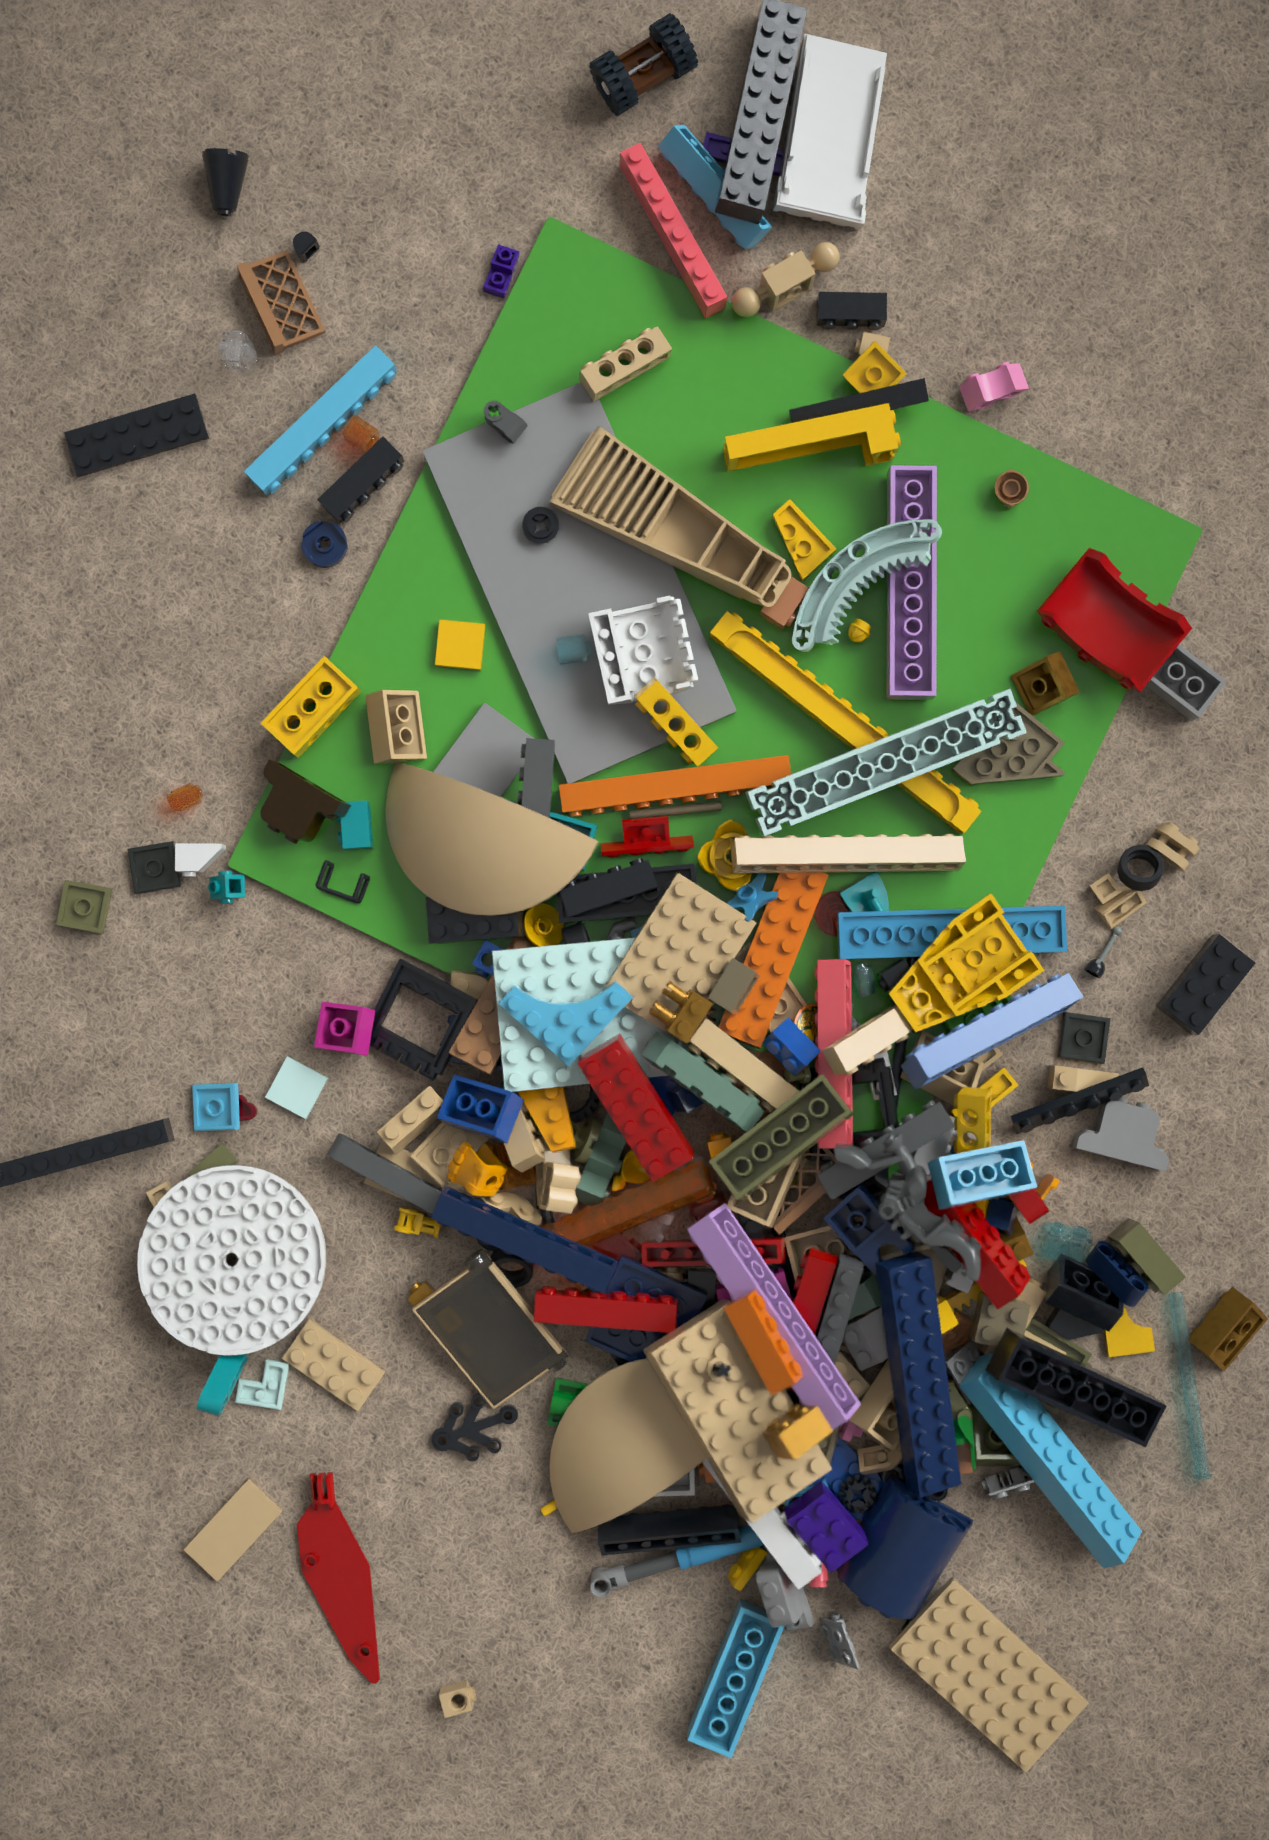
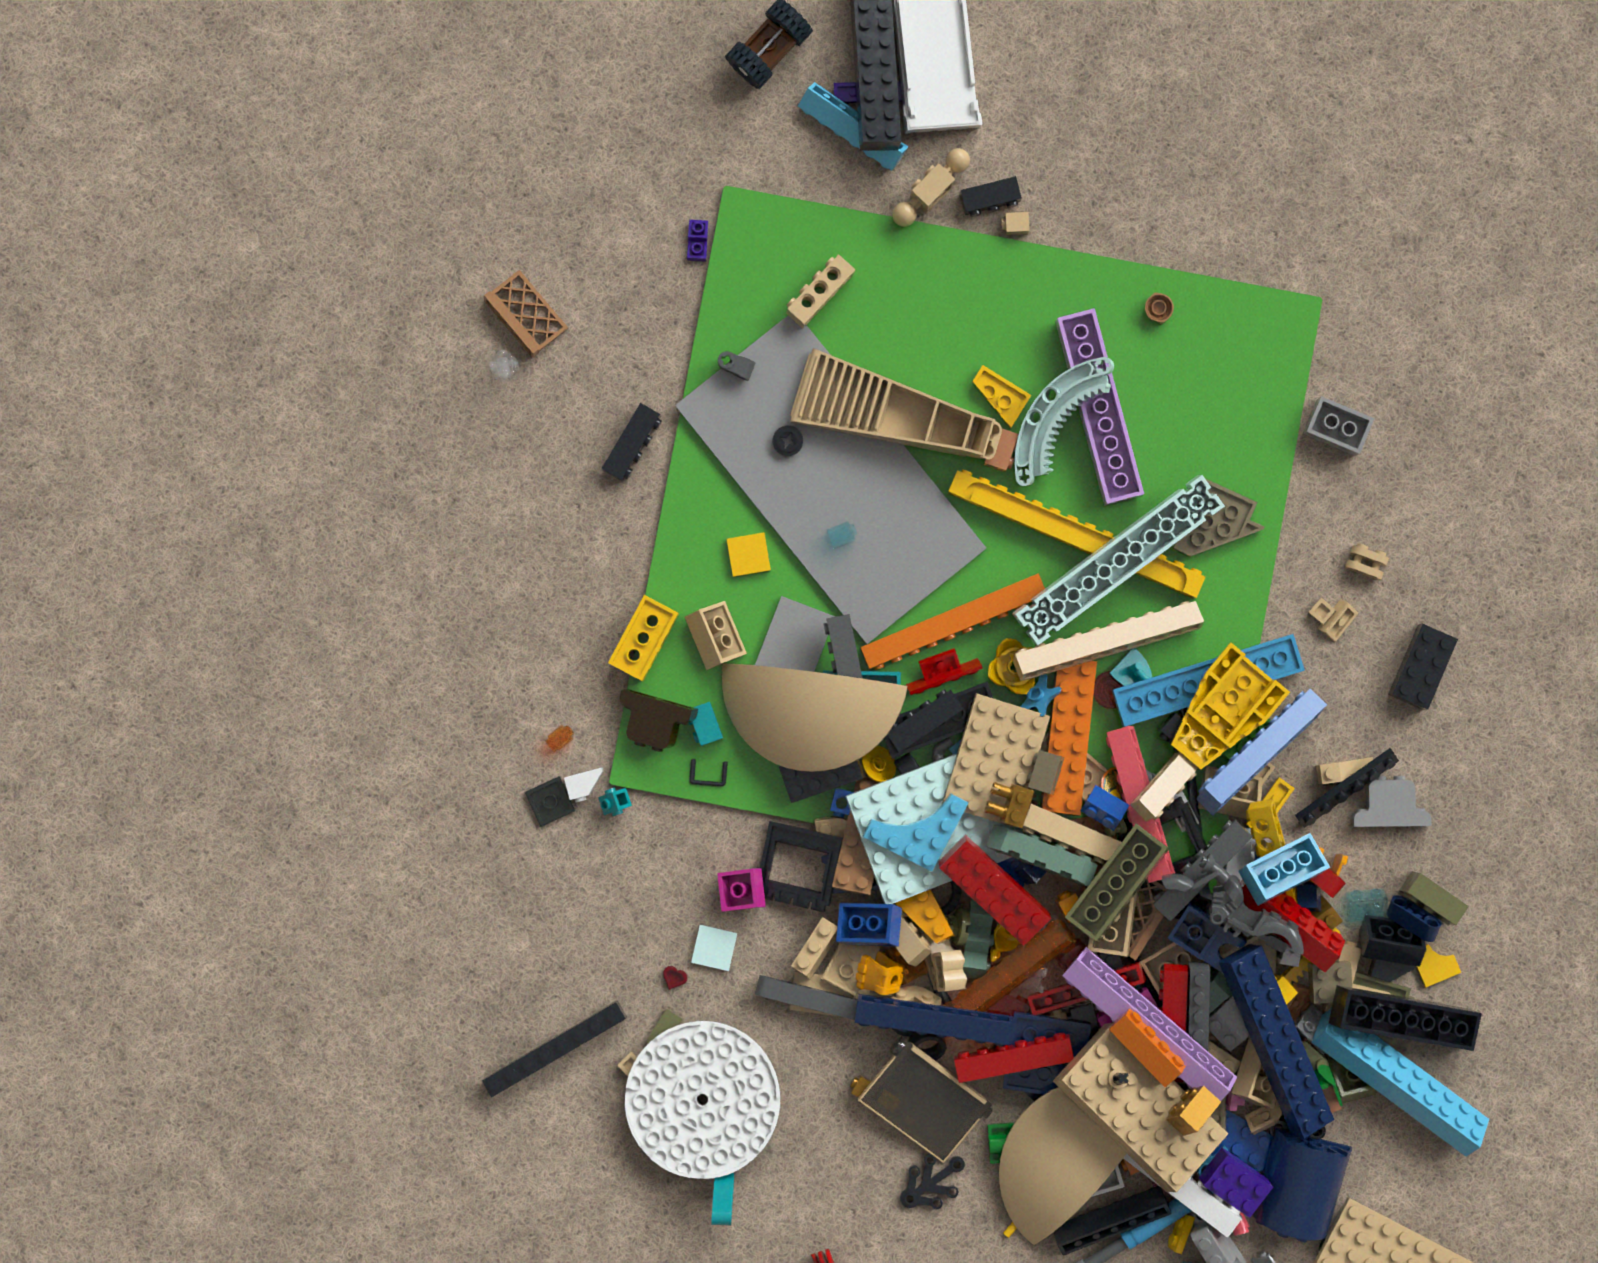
camera: 10 degrees left, 0 degrees up
(84, 906) = (502, 848): olive plate -> none
(136, 435) = (438, 454): black plate -> none
(216, 1107) = (653, 981): medium azure tile -> none
(224, 177) = (454, 227): black cone -> none
(268, 1392) = (759, 1199): light aqua tile -> none
(305, 245) = (533, 263): black brick -> none
(321, 420) = (584, 404): medium azure brick -> none
(327, 531) = (613, 491): dark blue plate -> none
(333, 1365) = (805, 1162): tan plate -> none
(361, 433) = (622, 404): clear orange brick -> none
(416, 1222) = (841, 1030): yellow connector -> none
(643, 645) = (899, 521): white slope -> none
(672, 230) = (828, 171): coral brick -> none
(675, 810) = (958, 641): dark tan bar -> none
(703, 745) = (967, 584): yellow brick -> none
(846, 1494) = (1251, 1142): black gear -> none
(859, 630) = (1067, 456): yellow plate -> none
(863, 979) = (1147, 737): clear light blue brick -> none
(866, 426) = (1032, 291): yellow brick -> none
(874, 370) = (1023, 245): yellow hinge -> none
(896, 395) = (1018, 274): black tile -> none
(985, 389) = (1122, 228): bright pink brick -> none
(1018, 1478) = (1381, 1109): light grey hinge -> none
(1045, 683) = (1229, 459): pearl gold slope -> none
(1084, 1037) = (1337, 735): pearl dark grey tile -> none
(1096, 965) = (1332, 676): hinge -> none
(1112, 622) = (1270, 395): red panel -> none
(1139, 883) = (1345, 573): black tyre -> none
(1189, 1387) = (1496, 993): clear light blue axle -> none
(1227, 1328) = (1515, 938): pearl gold slope -> none

